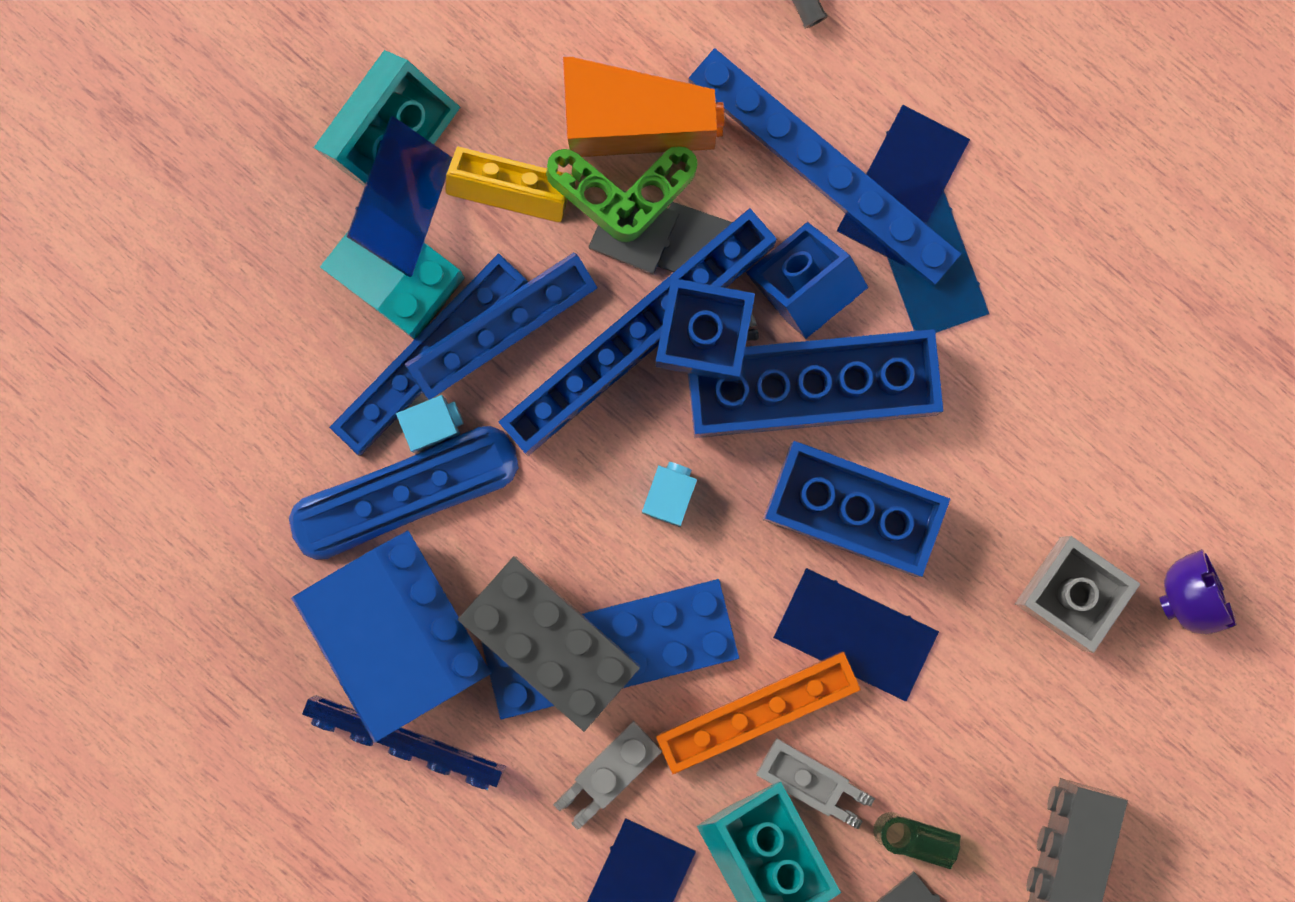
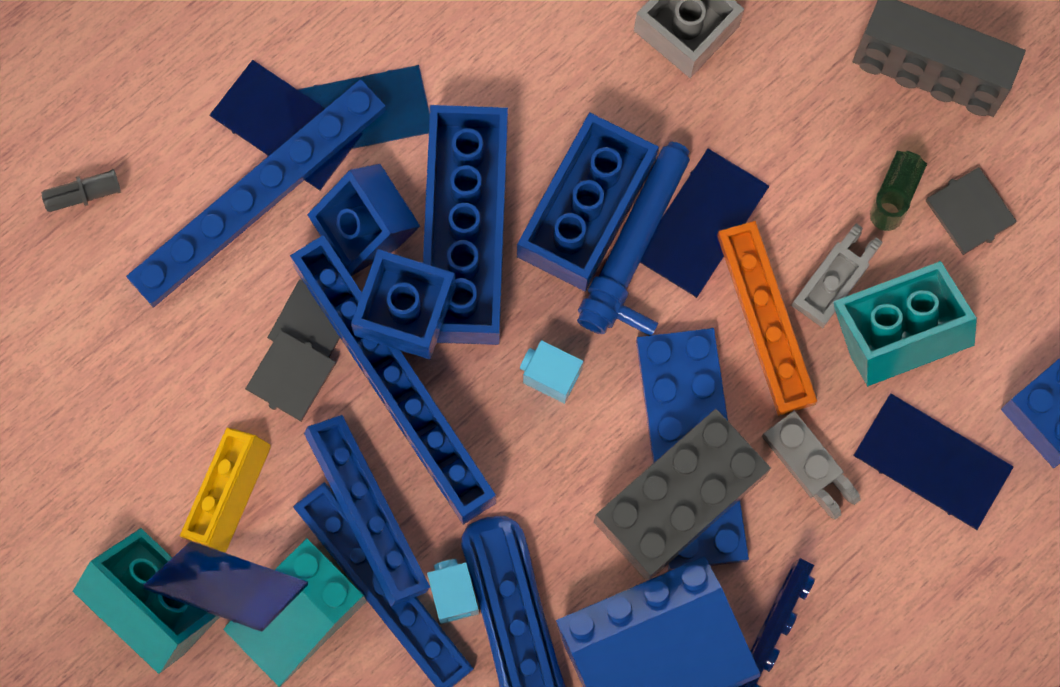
camera: 90 degrees left, 10 degrees down
(618, 202) = (263, 382): bright green beam -> none
(636, 112) = (177, 355): orange slope -> none
(766, 544) = (609, 289): none -> blue cylinder

